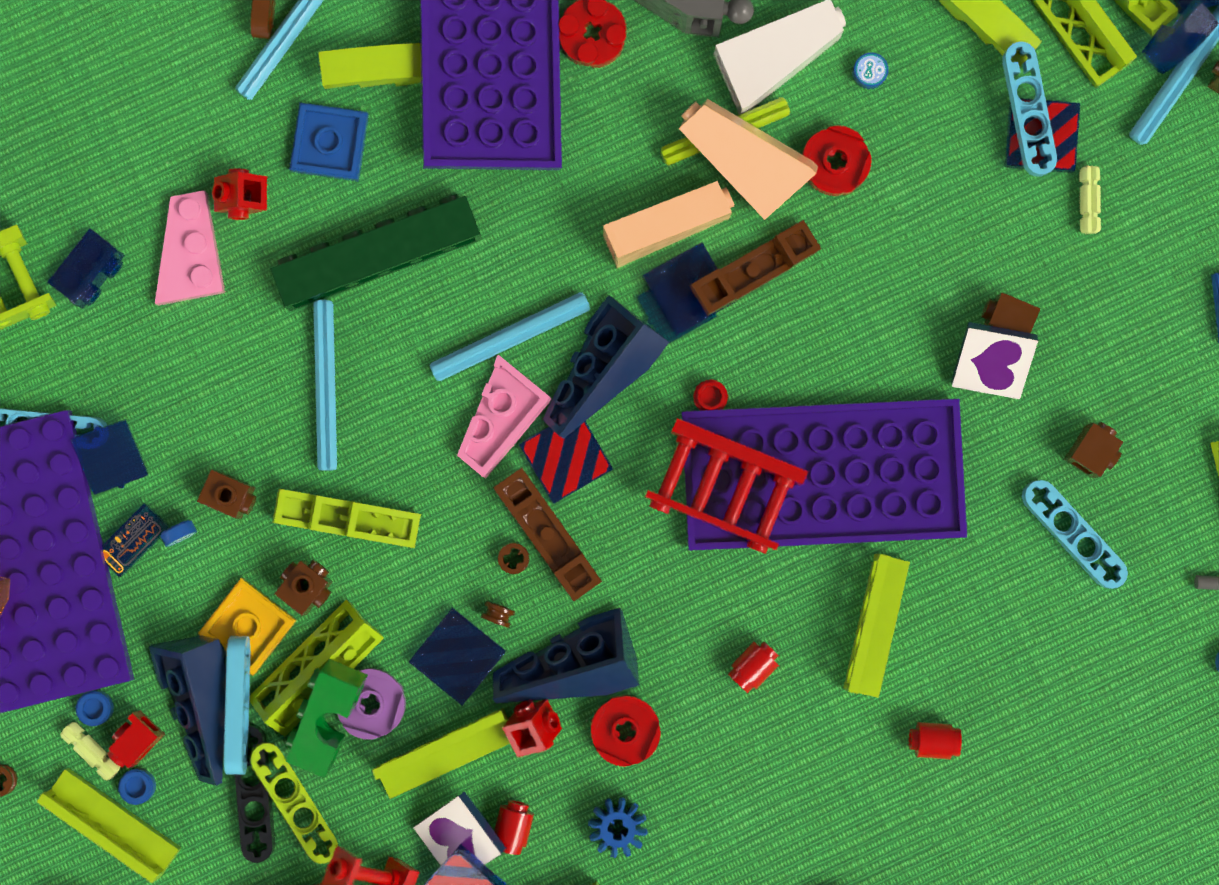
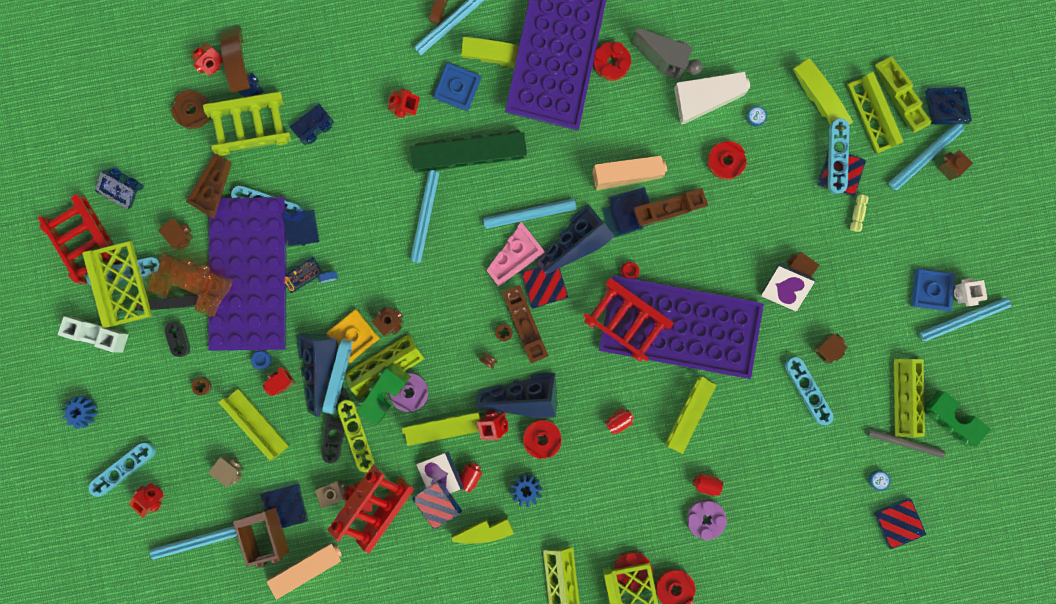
camera: 15 degrees right, 0 degrees up
(89, 750) = (253, 382): yellowish green axle -> none
(137, 786) = (274, 407): blue tile -> none
(189, 252) = (369, 128): bright pink wing -> none
(227, 495) = (359, 262): reddish brown brick -> none
(346, 518) = (419, 290): lime slope -> none
(457, 656) = (461, 378): clear blue tile -> none
(748, 158) = (681, 148): light nougat slope -> none
(757, 117) = (671, 130): lime axle -> none
(967, 799) = (695, 519): none -> medium lavender plate
(1177, 42) = (926, 139): clear blue slope -> none

